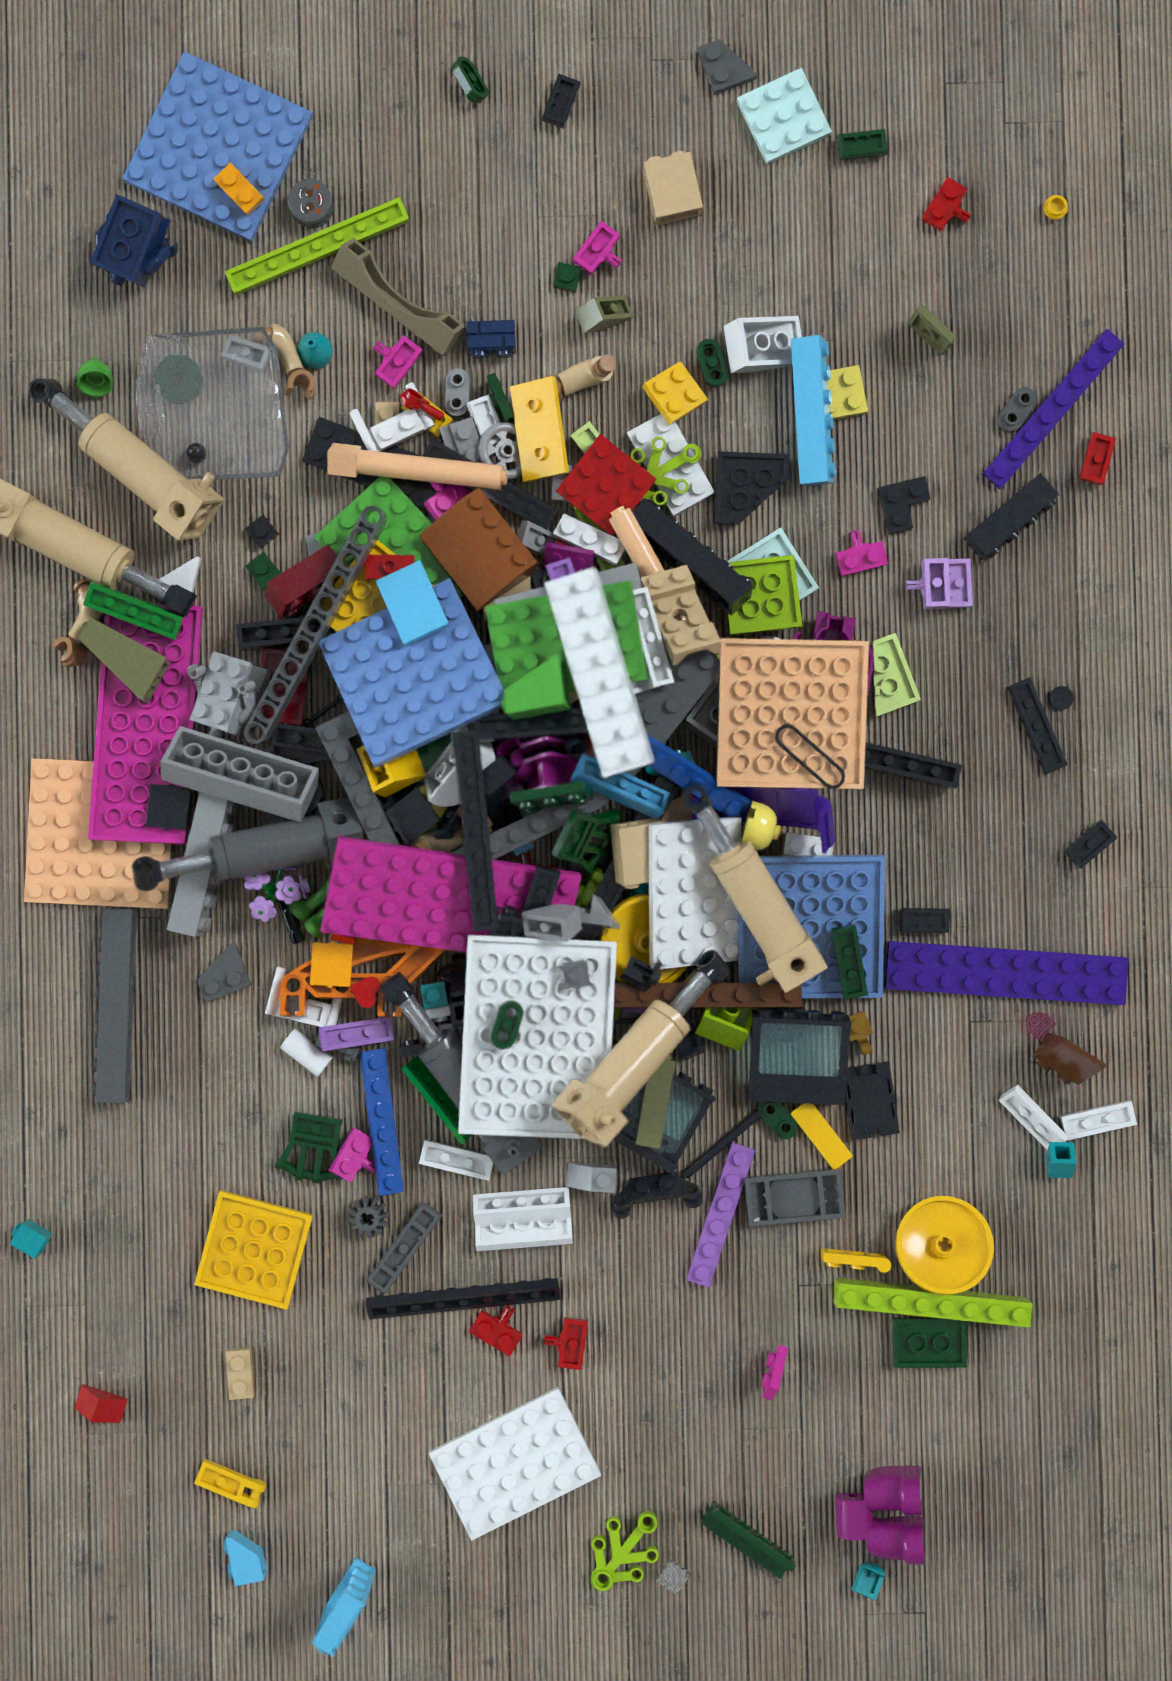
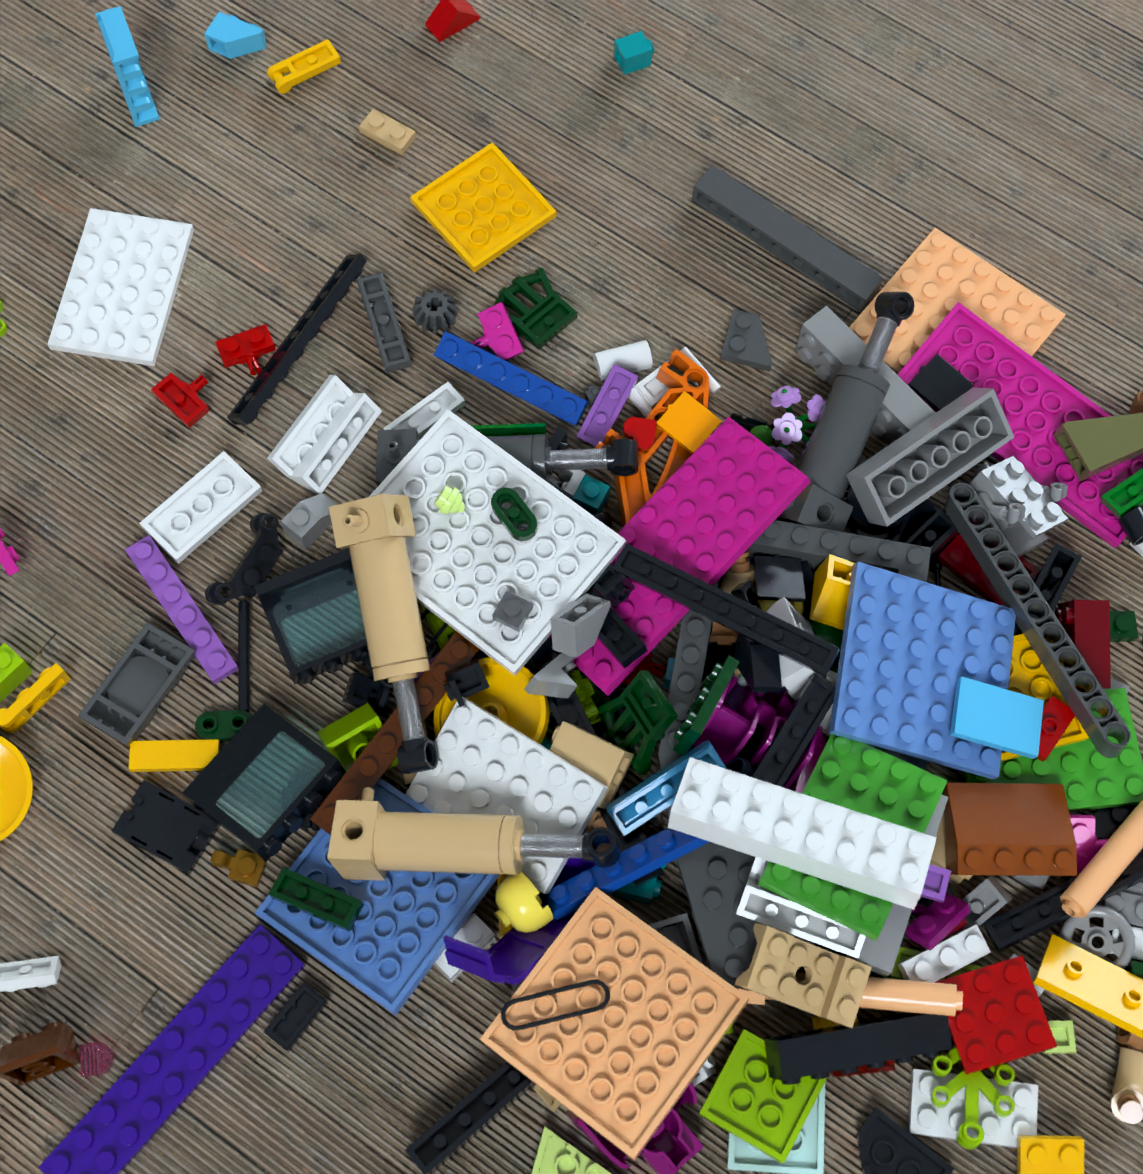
camera: 125 degrees right, 20 degrees down
(529, 1077) = (449, 501): none -> yellowish green plate
(539, 691) = (823, 762): bright green slope -> none
(640, 1261) = (201, 507): none -> white plate
(656, 1105) = (328, 610): olive slope -> none

